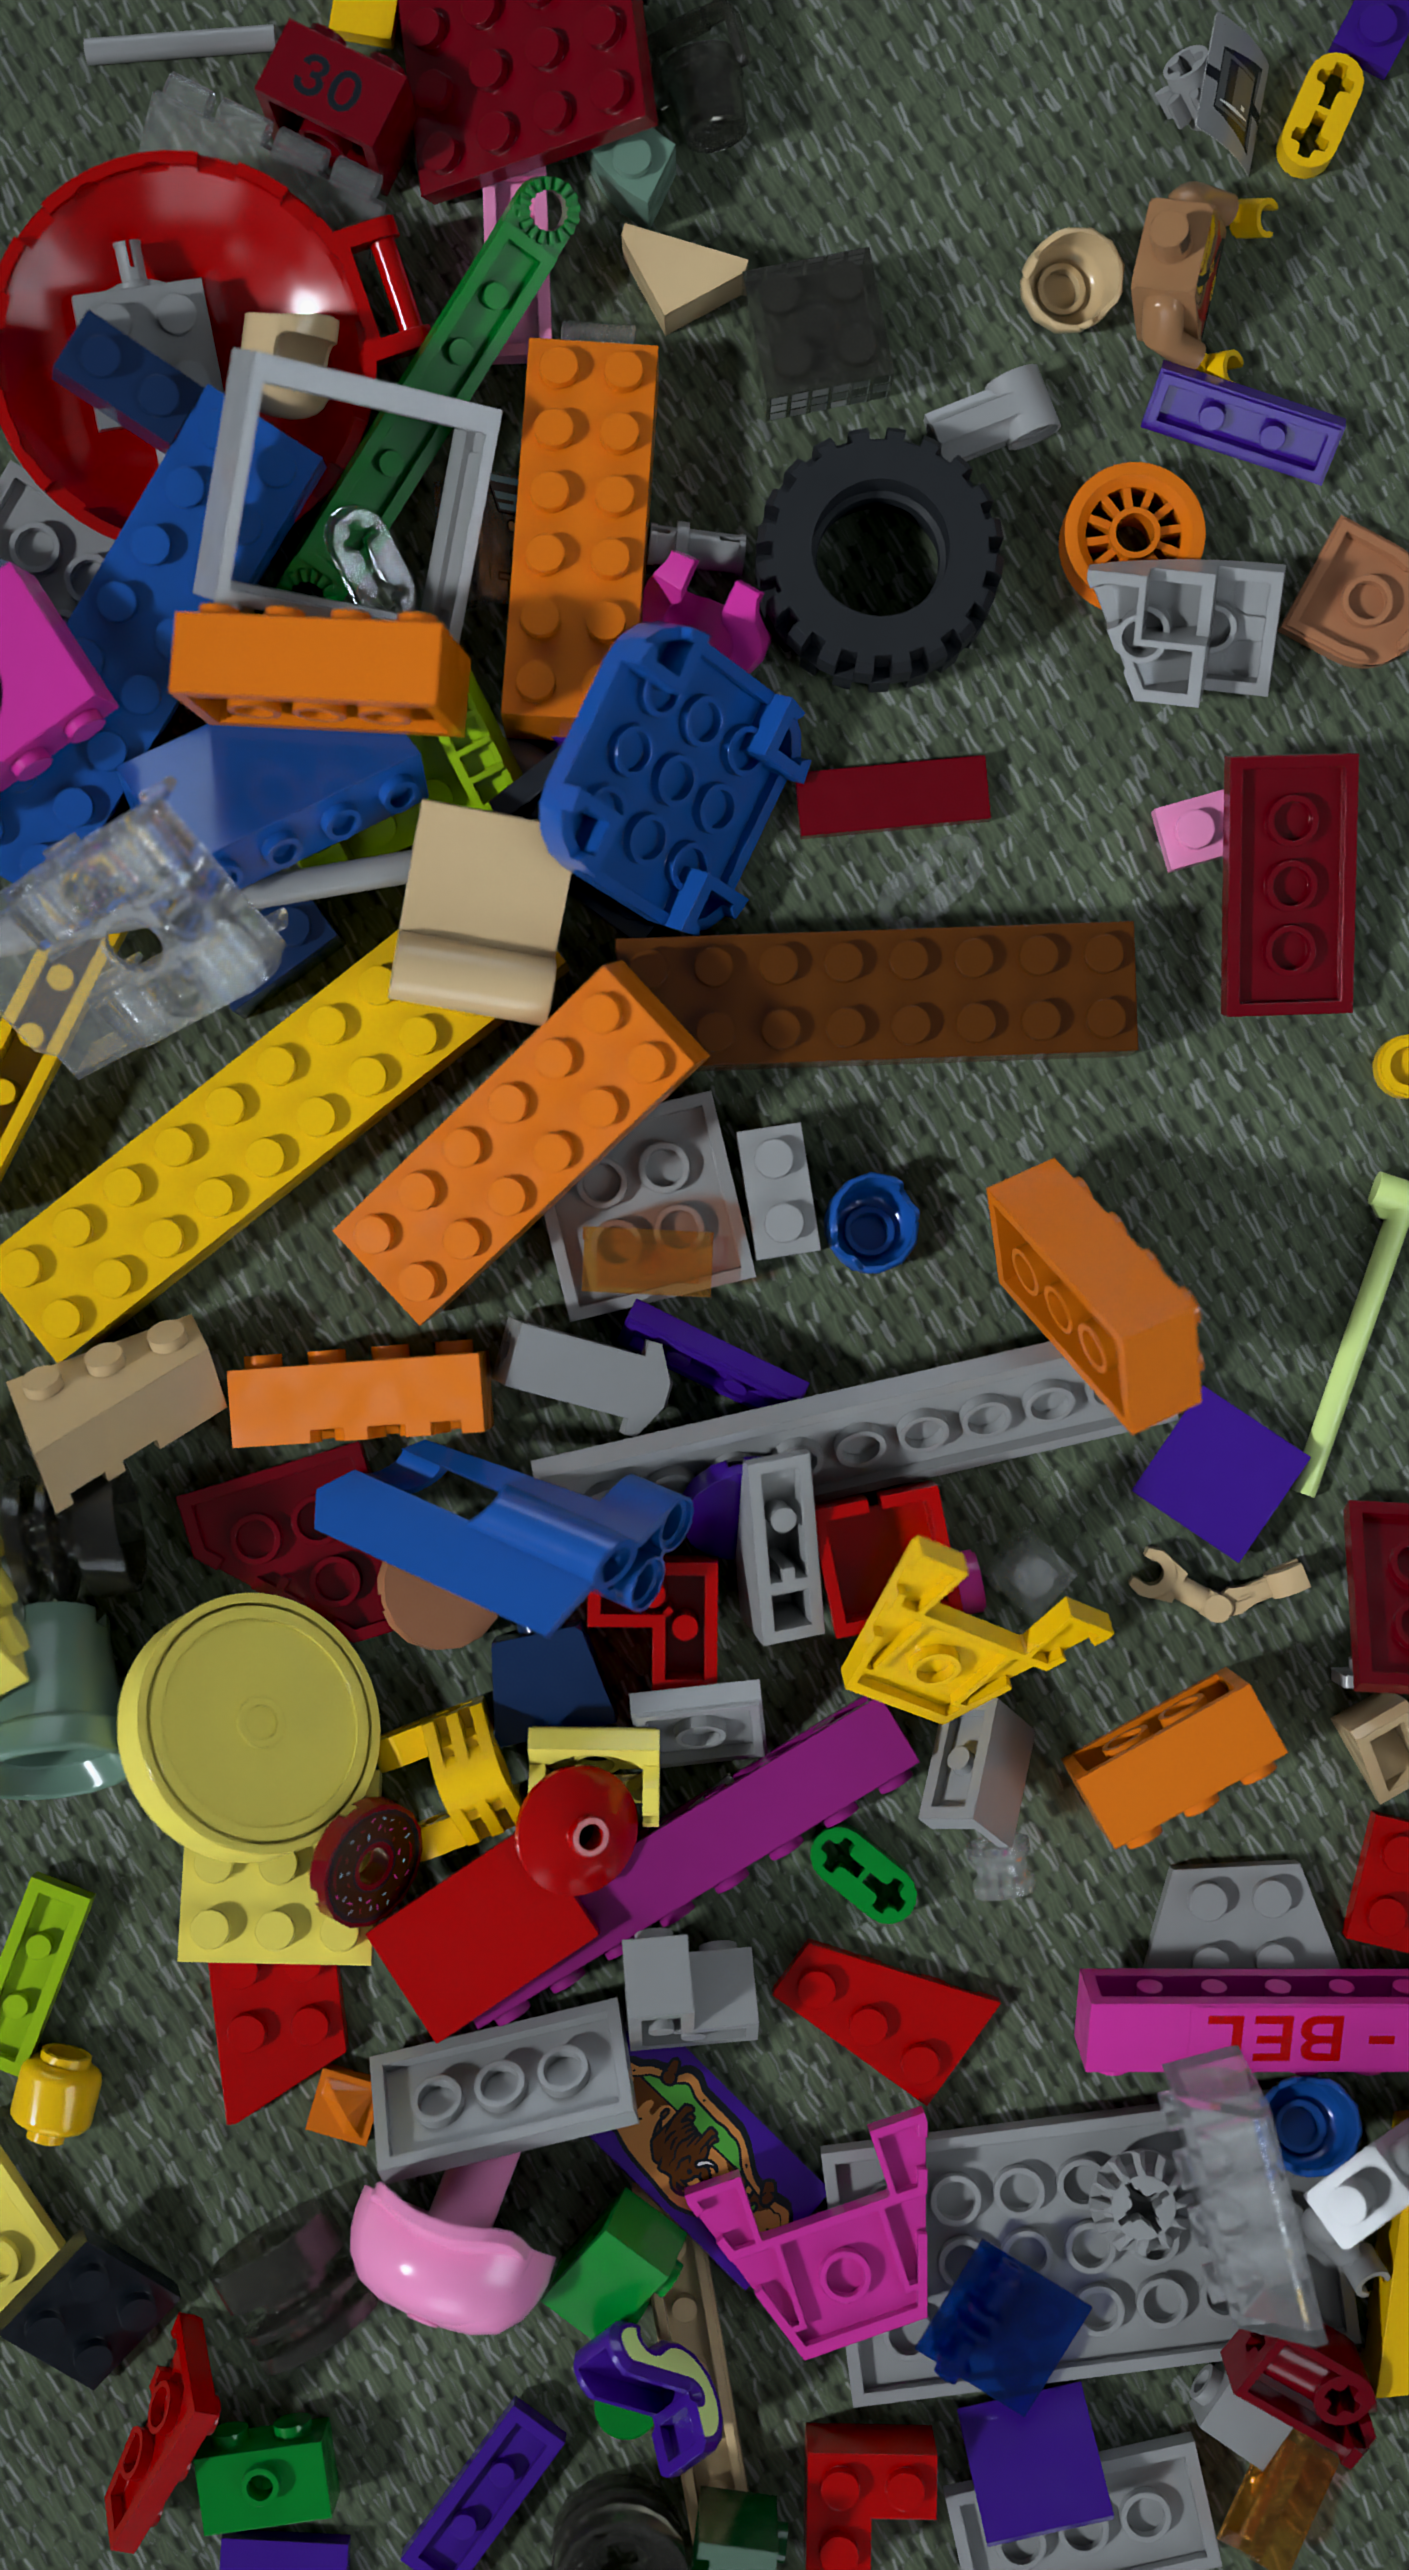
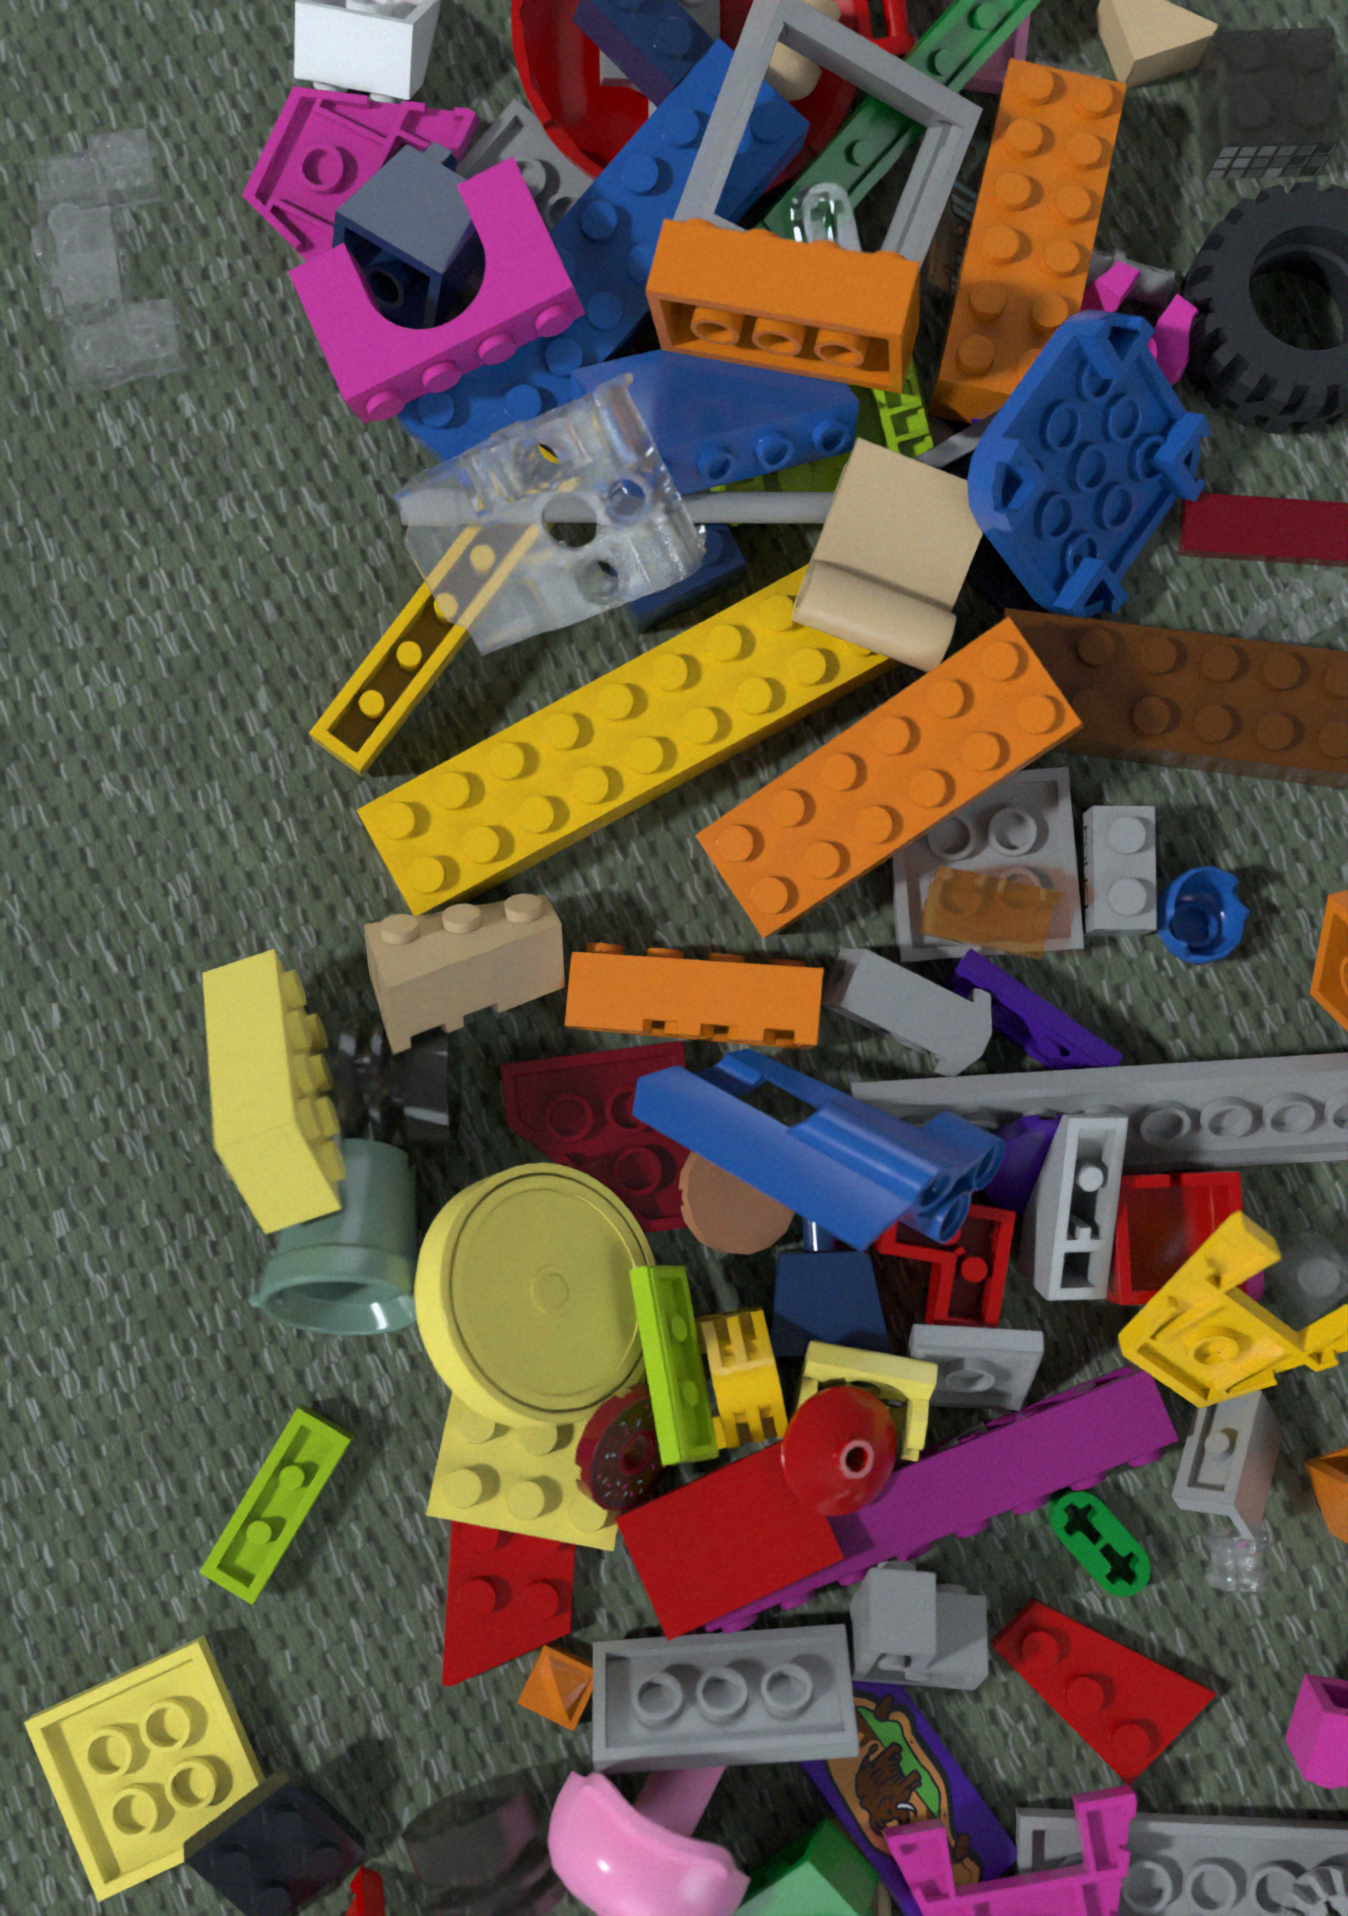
camera: 15 degrees right, 5 degrees down
(56, 2094) = (282, 1626): yellow head -> none
(396, 1772) = (673, 1364): none -> lime tile

